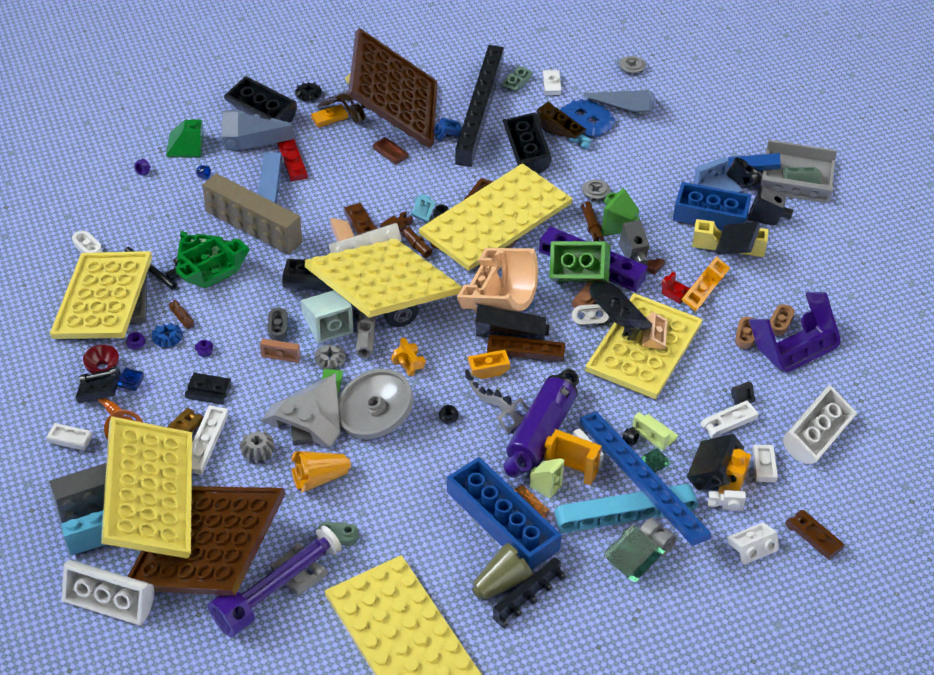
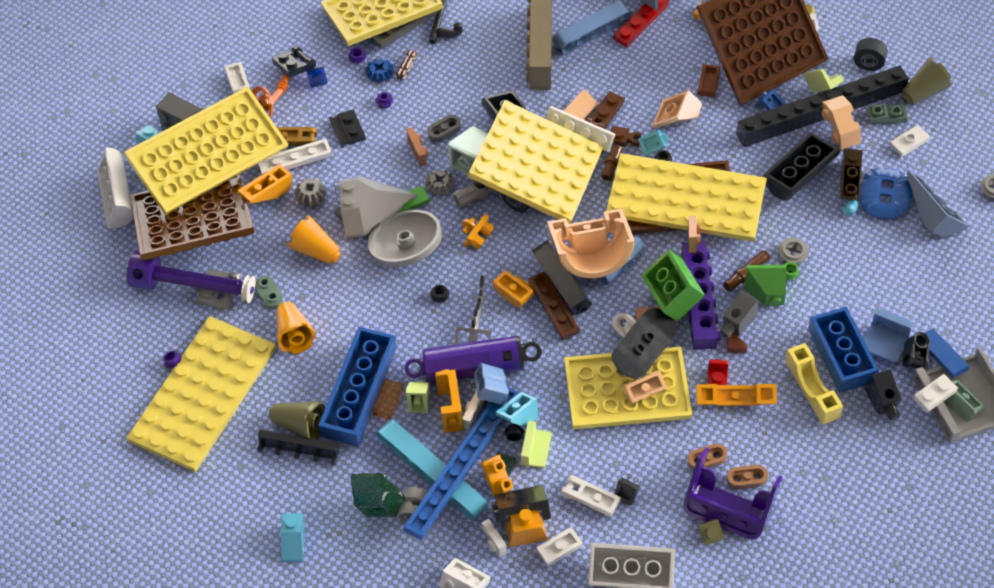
camera: 60 degrees right, 10 degrees up
(100, 355) = (317, 43): dark red piece -> none
(208, 258) = (467, 41): green wedge -> none
(226, 465) = (267, 186): none -> light orange slope
(346, 640) = (171, 359): none -> dark purple plate
(398, 529) = (293, 330): none -> light orange cone
(403, 179) = (677, 109): none -> light nougat slope
(459, 56) = (870, 54): none -> black wheel
(461, 89) = (819, 81): none -> yellowish green panel
(503, 95) = (844, 129): none -> light nougat brick
(514, 40) = (927, 81): none -> olive cone
(542, 225) = (693, 234): none -> nougat plate
(581, 418) = (491, 383): none -> medium blue brick
(619, 415) = (520, 409): none -> medium azure slope
(623, 642) = (292, 537): none -> medium azure slope
(668, 467) = (496, 475): none -> light orange hips
(738, 238) = (809, 388): black tile -> none
(792, 179) = (935, 393): none -> white plate
(816, 365) = (710, 532): none -> olive plate

